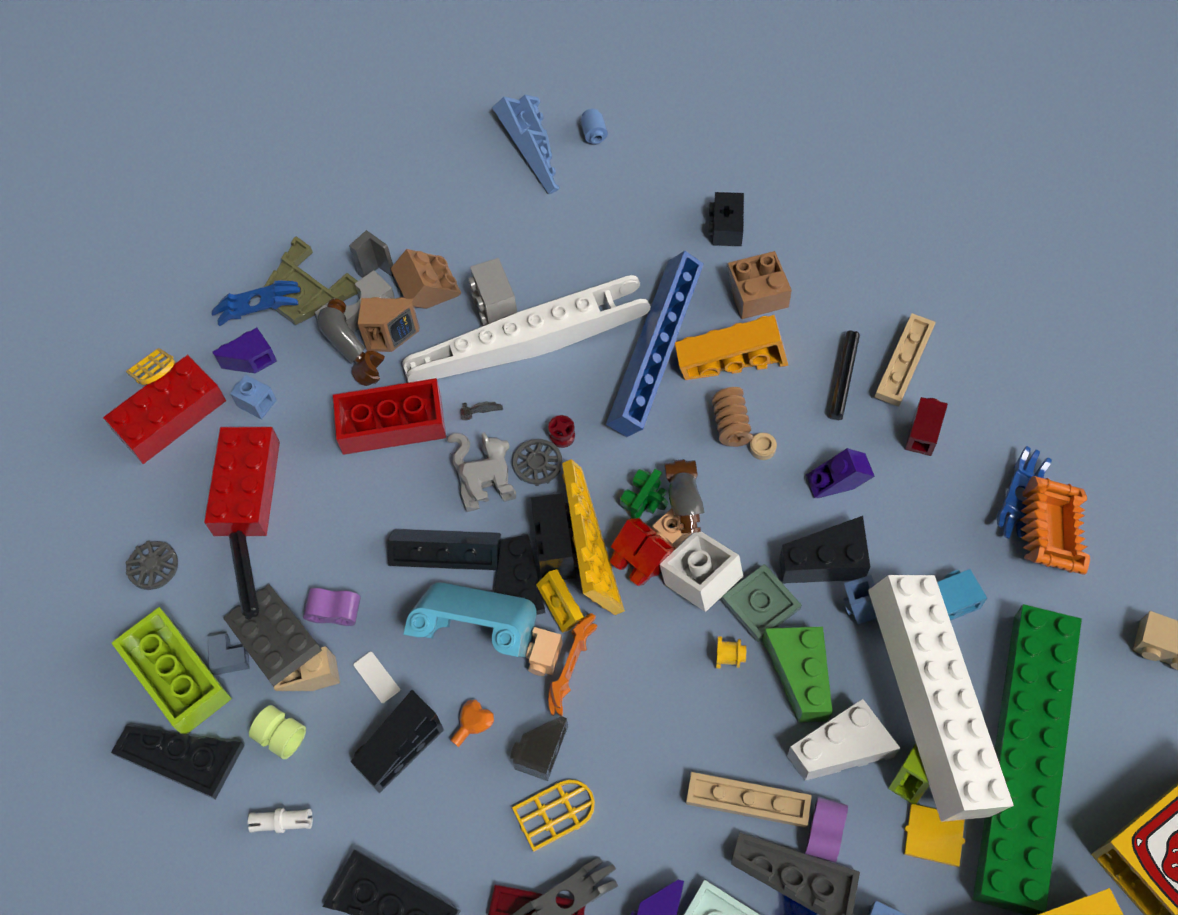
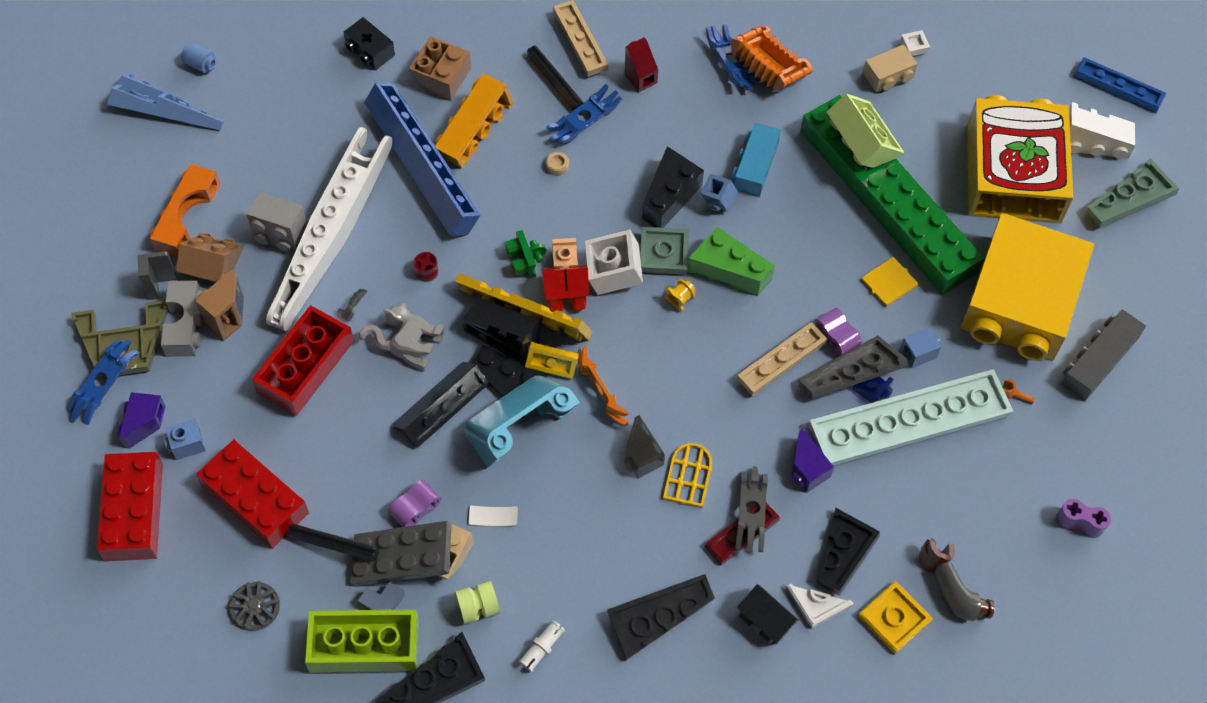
camera: 55 degrees left, 0 degrees up
(153, 377) = (89, 495): yellow window -> none
(335, 328) = (207, 339): piece -> none
(397, 742) = (557, 529): black wedge -> none
(472, 721) = (582, 477): orange rock -> none
(474, 219) = (195, 187): none -> orange arch
(537, 461) = (432, 299): dark grey wheel -> none
(544, 652) = (583, 394): light nougat brick -> none
(684, 493) = (553, 226): piece -> none
(732, 417) = (520, 163): medium nougat piece -> none
(840, 473) = (622, 138): dark purple slope -> none
(843, 743) = (796, 276): white wedge -> none
(846, 425) = (593, 107): none -> blue piece
(911, 778) = (847, 252): lime torso -> none
(939, 698) = (820, 199): white brick -> none
(1059, 675) = (864, 131): none -> yellowish green slope

